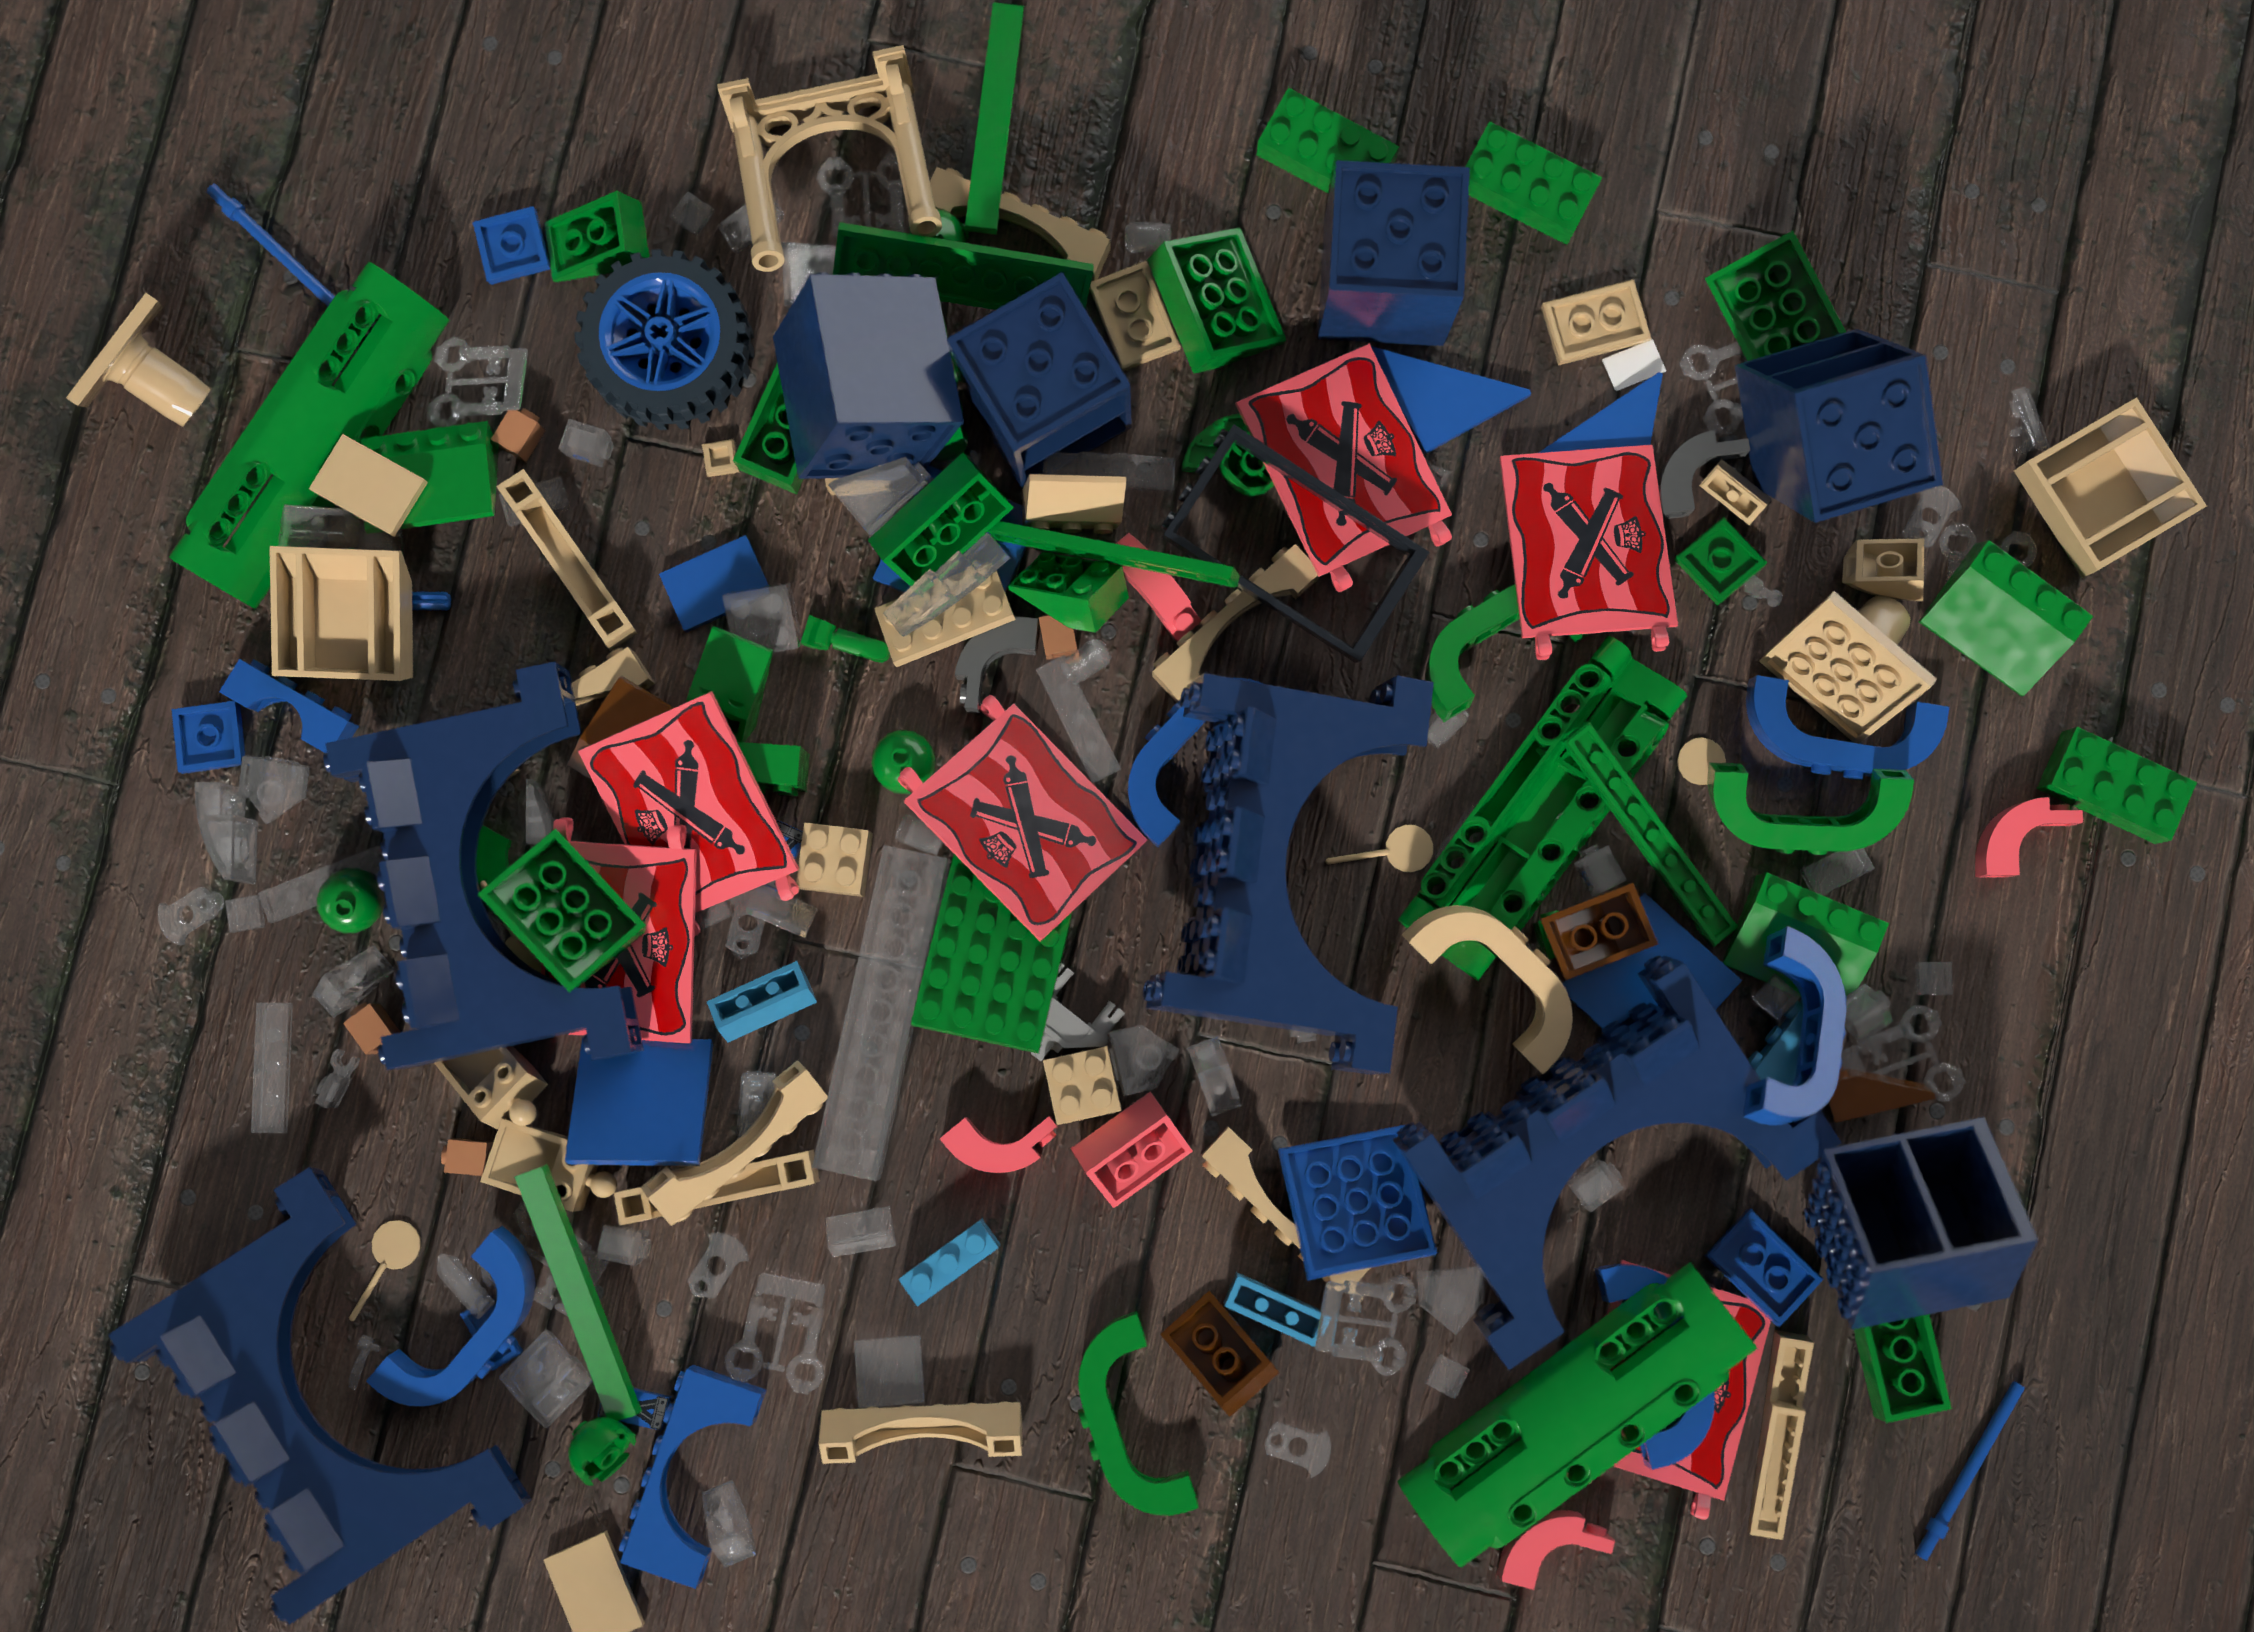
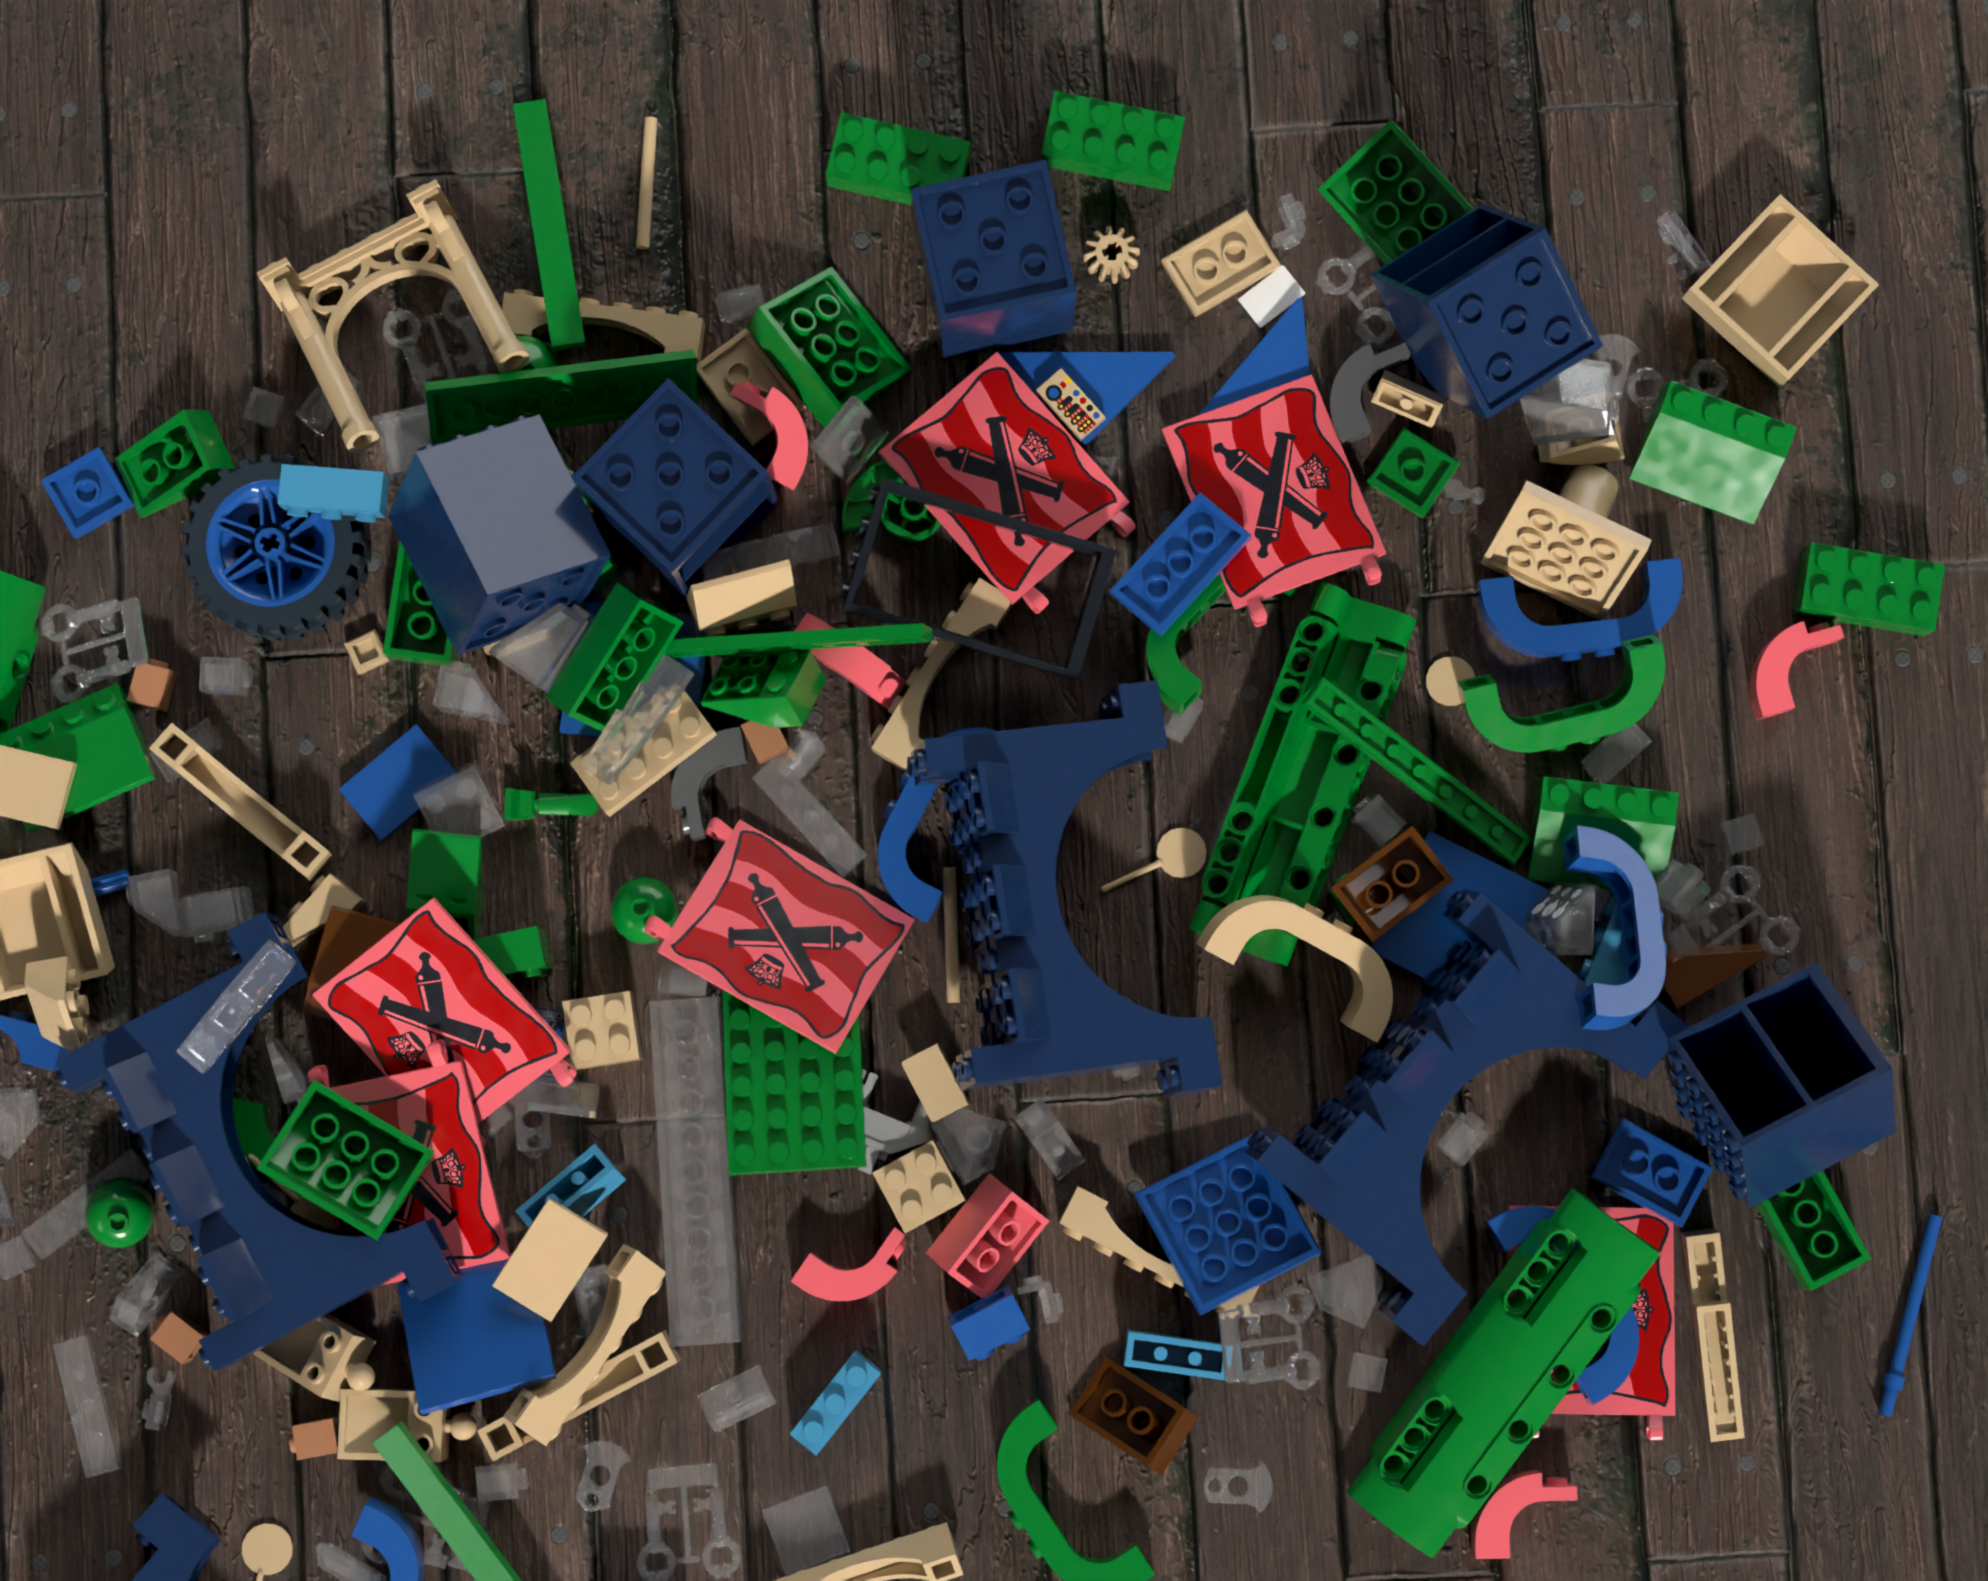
camera: 20 degrees left, 0 degrees up
(347, 691) = (57, 1001): none -> tan slope
(468, 628) = (156, 899): none -> clear slope
(502, 740) = (236, 1006): none -> clear slope
(511, 651) = (215, 912): none -> clear brick
(724, 1055) = (550, 1259): none -> tan tile
(728, 300) = (333, 492): none -> dark azure brick
(798, 520) = (466, 694): none -> clear slope
(1093, 106) = (646, 183): none -> tan bar
(1110, 1230) = (989, 1324): none -> blue brick
(1123, 994) = (934, 1083): none -> tan panel
(1159, 360) = (789, 429): none -> coral arch
(1172, 1225) = (1050, 1301): none -> clear bracket
(1177, 863) = (951, 935): none -> tan bar
(1212, 386) = (849, 439): none -> clear tile
(1423, 411) = (1070, 404): none -> tile
(1484, 582) = (1180, 564): none -> blue plate
(1487, 290) = (1124, 258): none -> tan gear
(1674, 299) = (1292, 215): none -> clear bracket
(1752, 1009) = (1564, 919): none -> clear slope
(1891, 536) = (1574, 404): none -> clear slope

